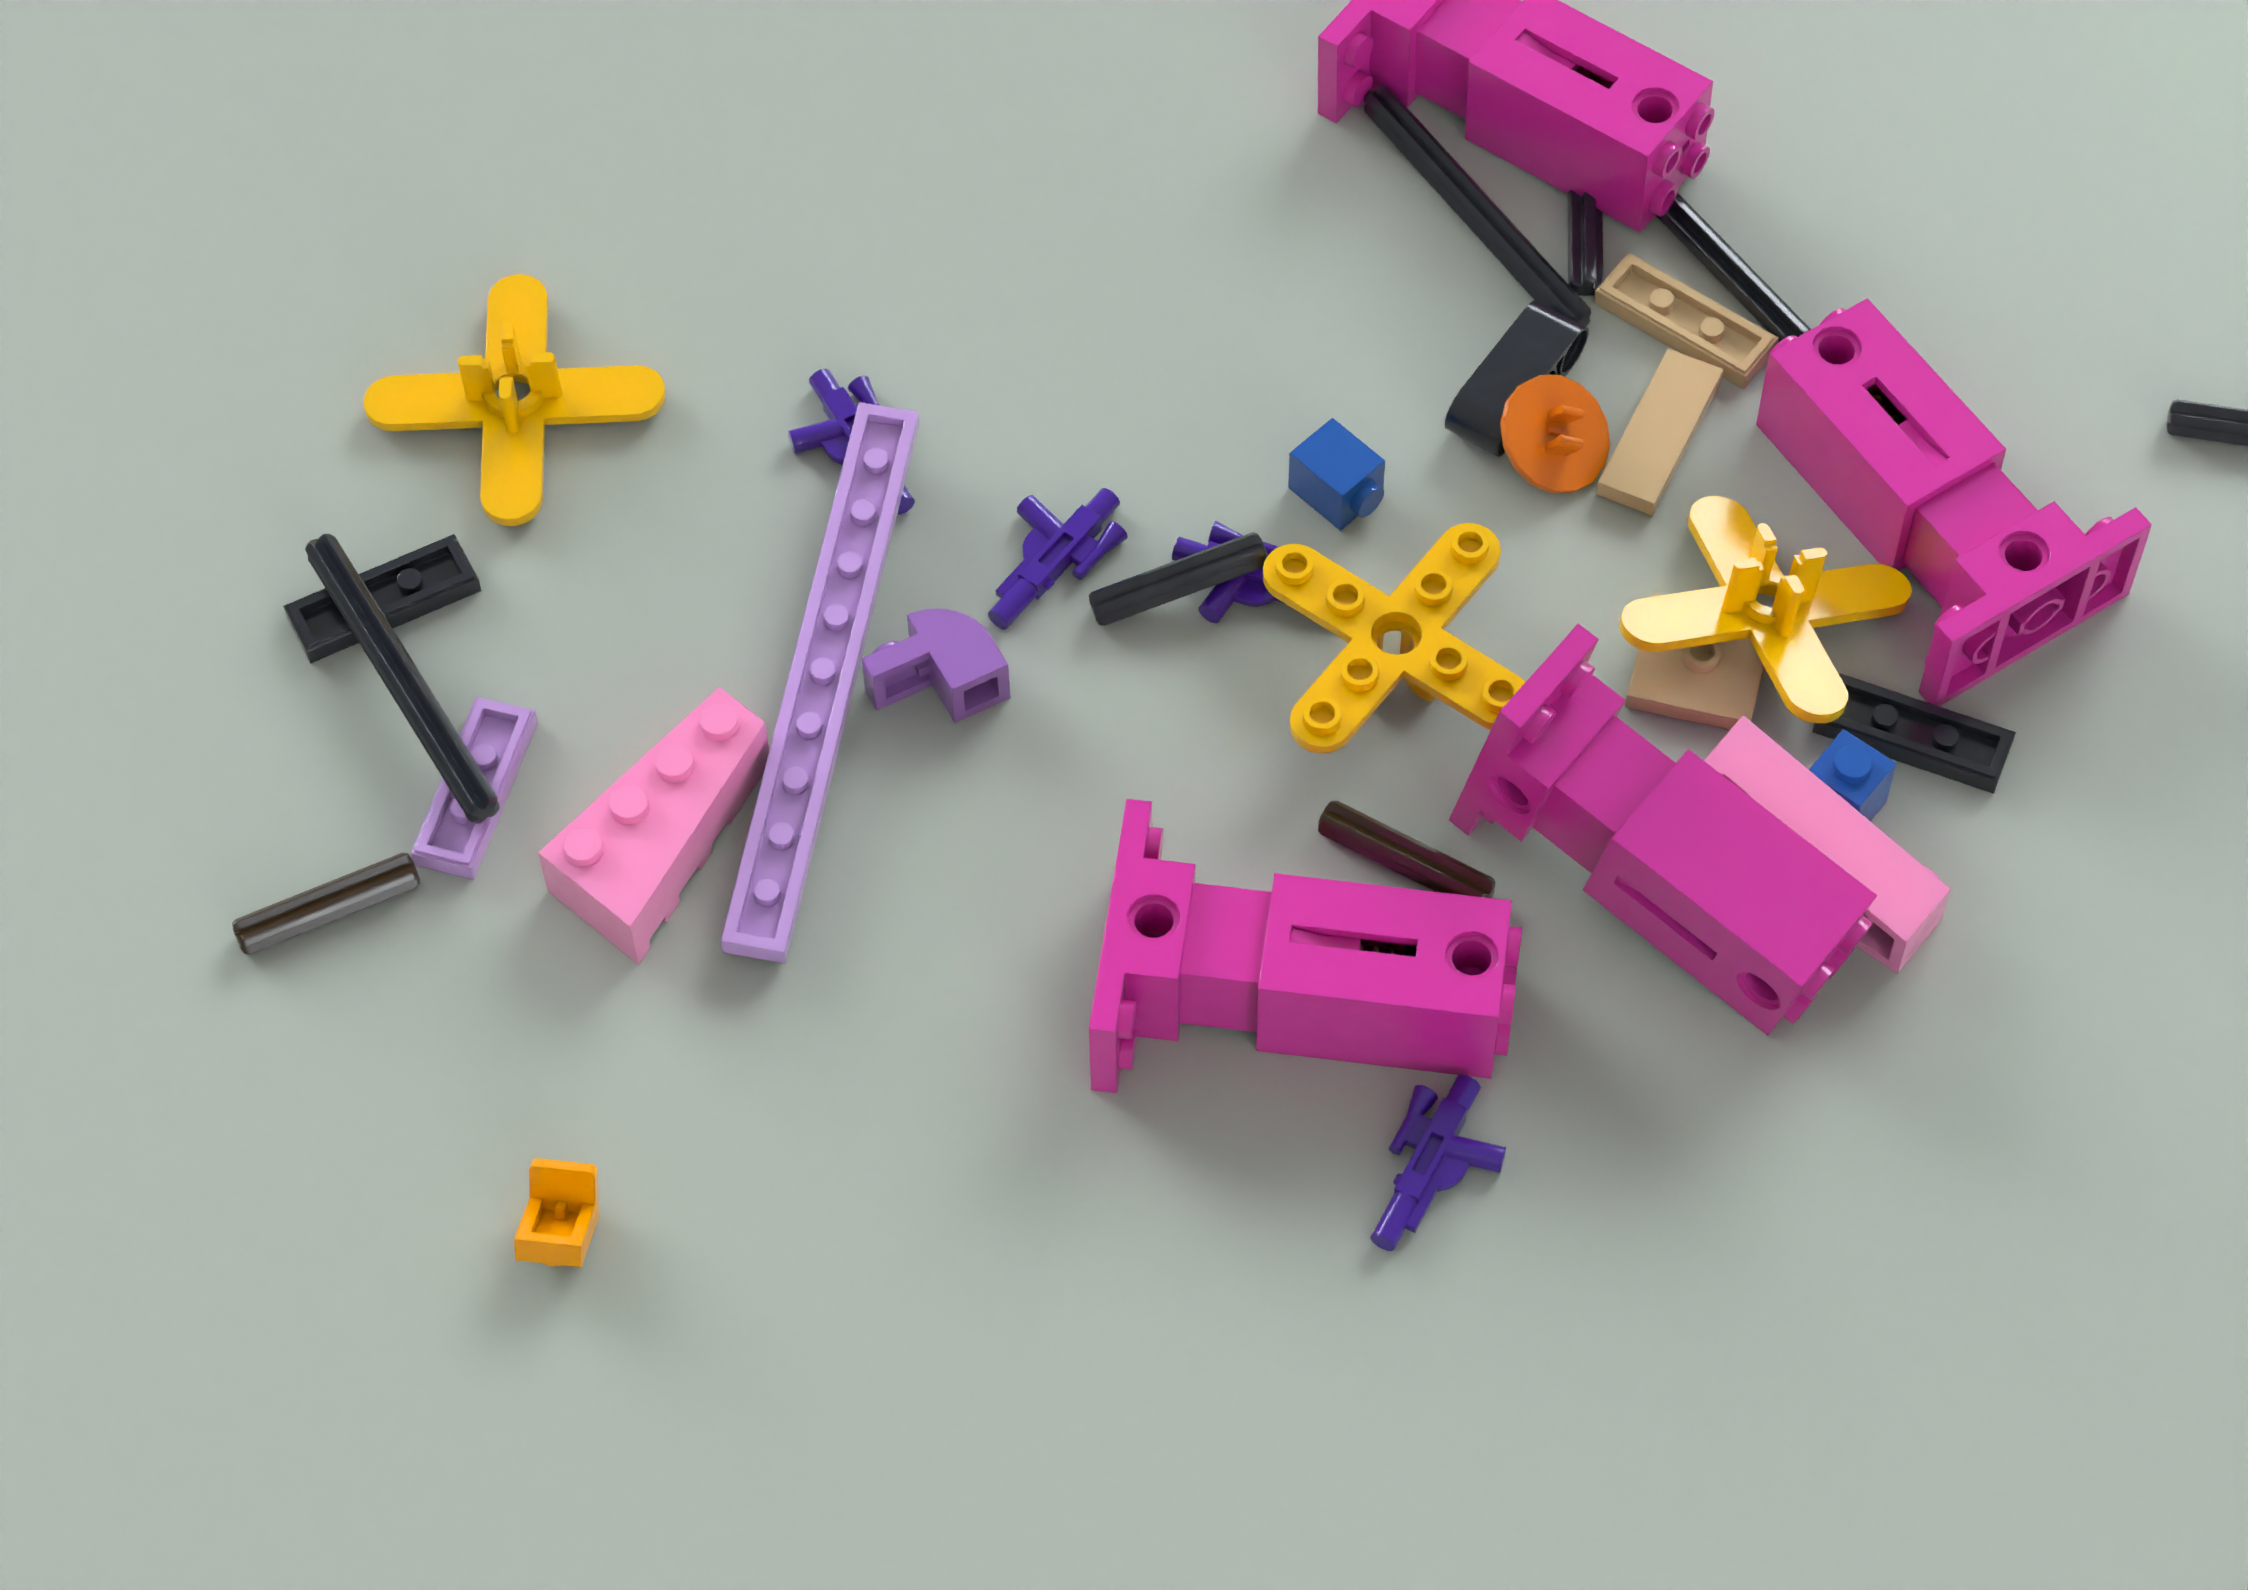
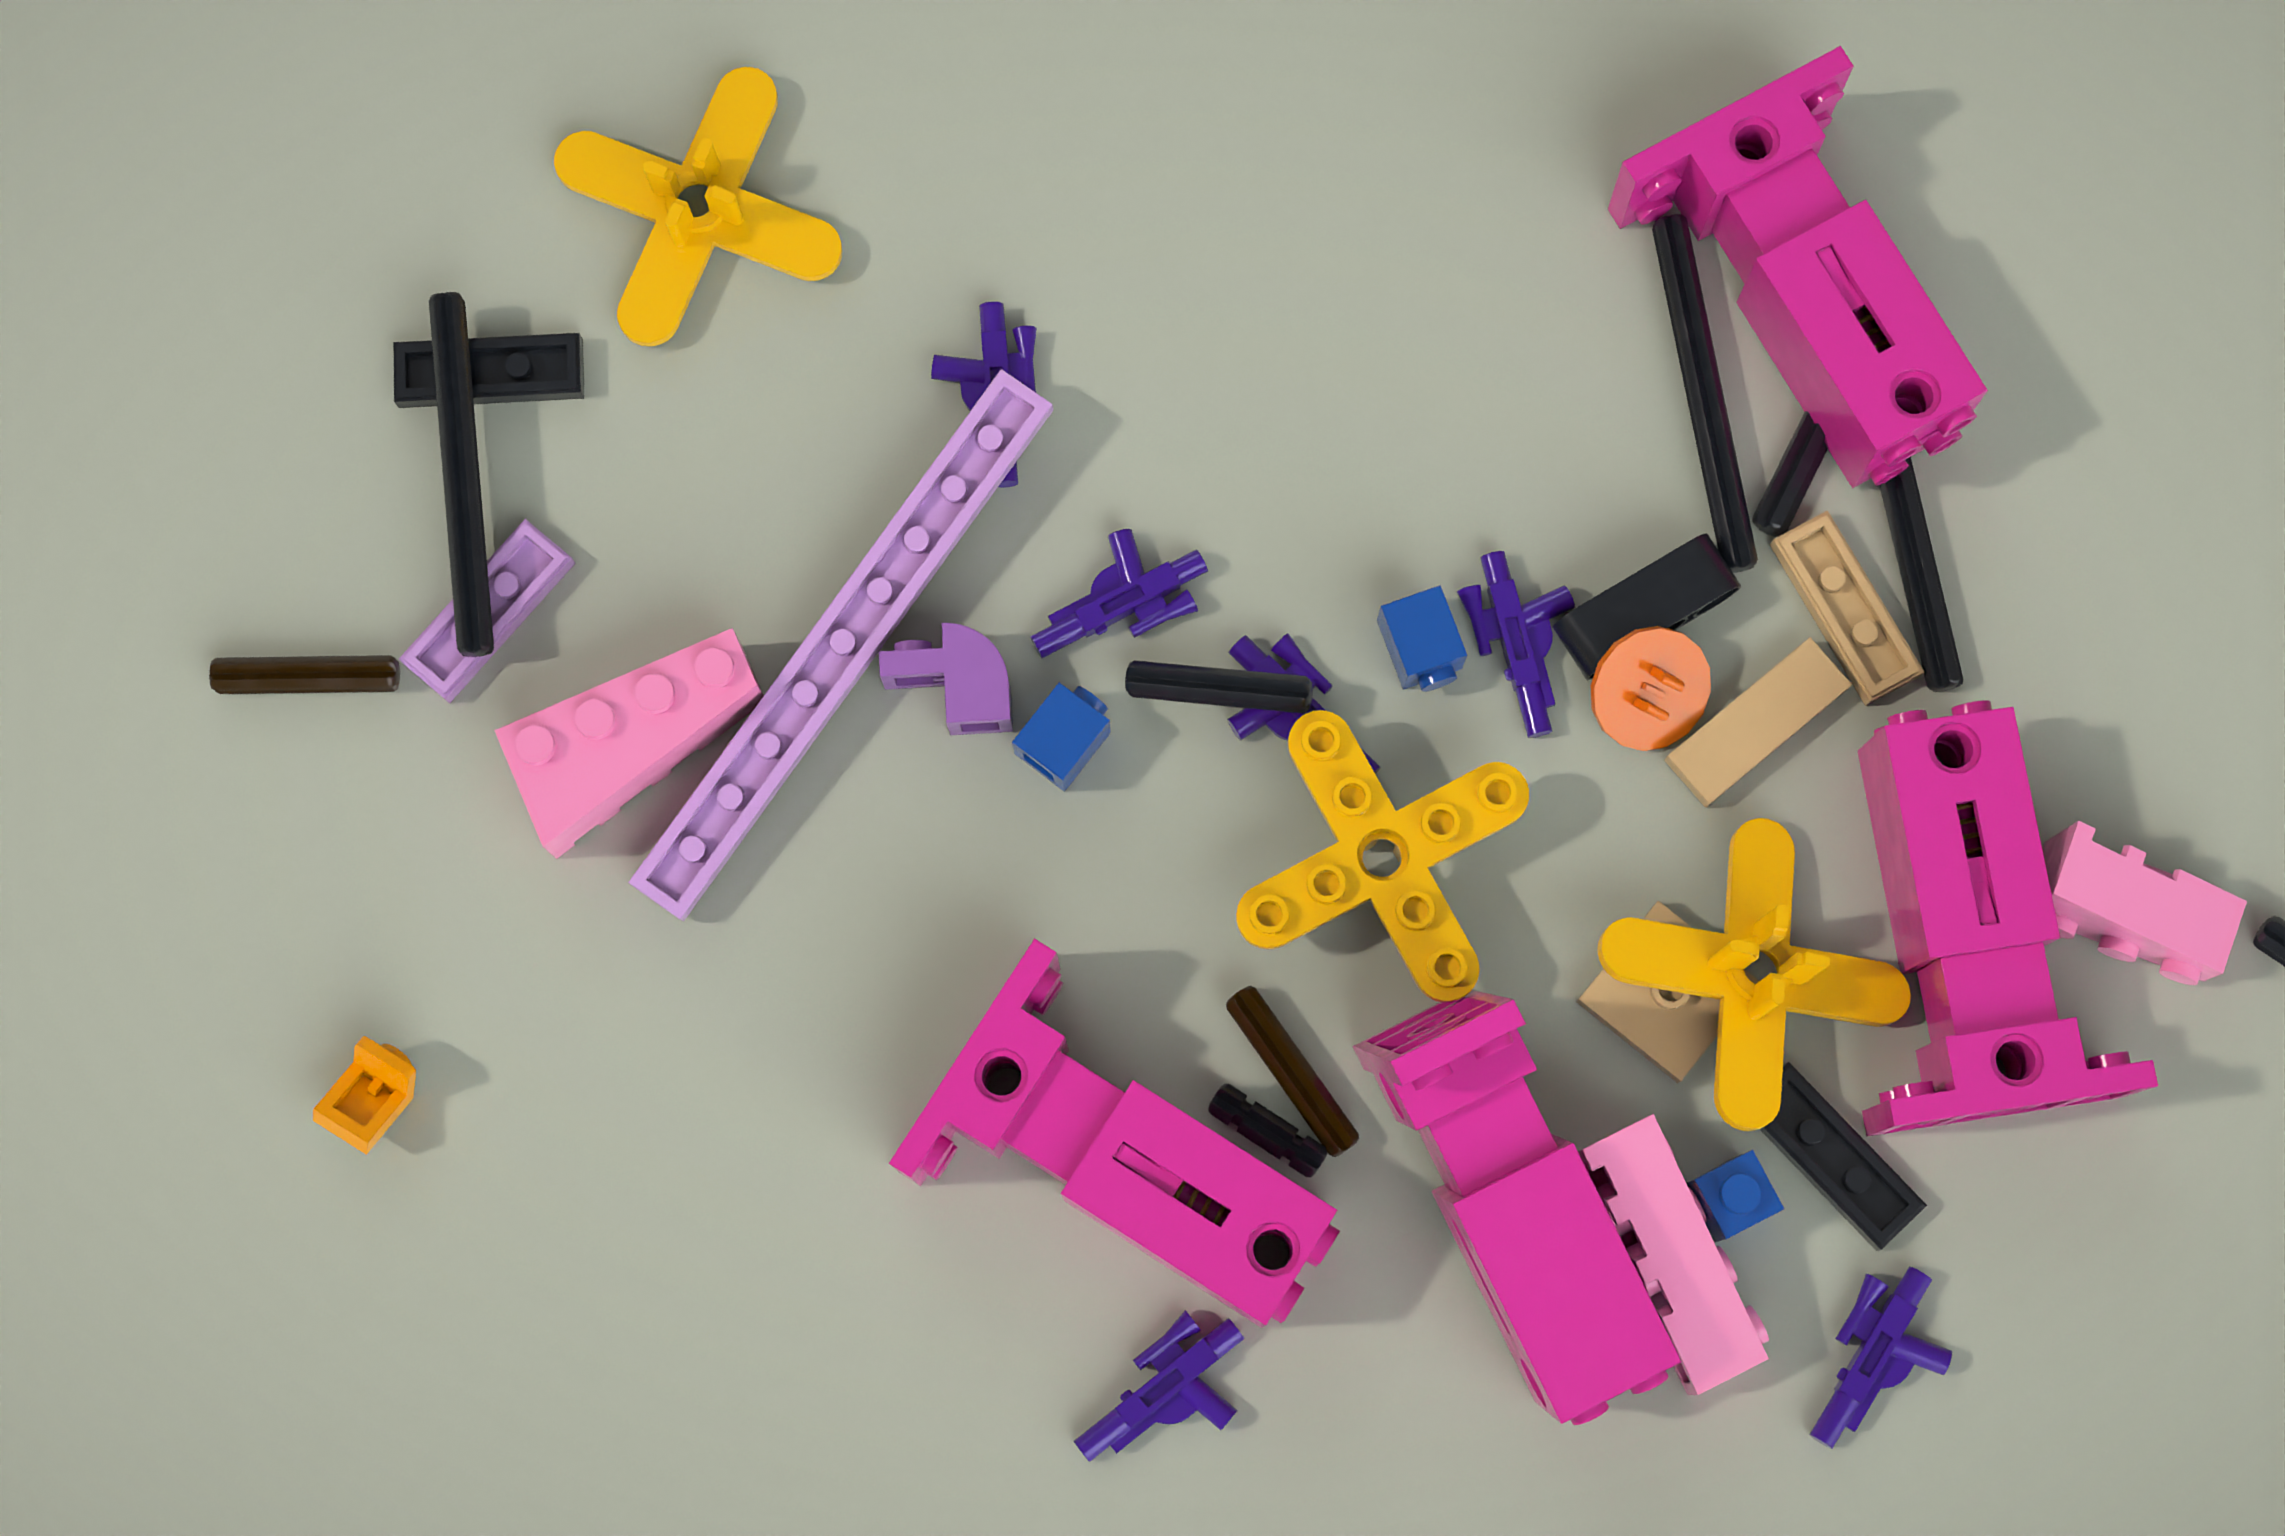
camera: 25 degrees right, 20 degrees up
(1059, 672) = (1063, 734): none -> blue brick
(1421, 446) = (1523, 635): none -> dark purple piece
(2047, 866) = (1882, 1357): none -> dark purple piece
(2063, 430) = (2139, 908): none -> bright pink wedge

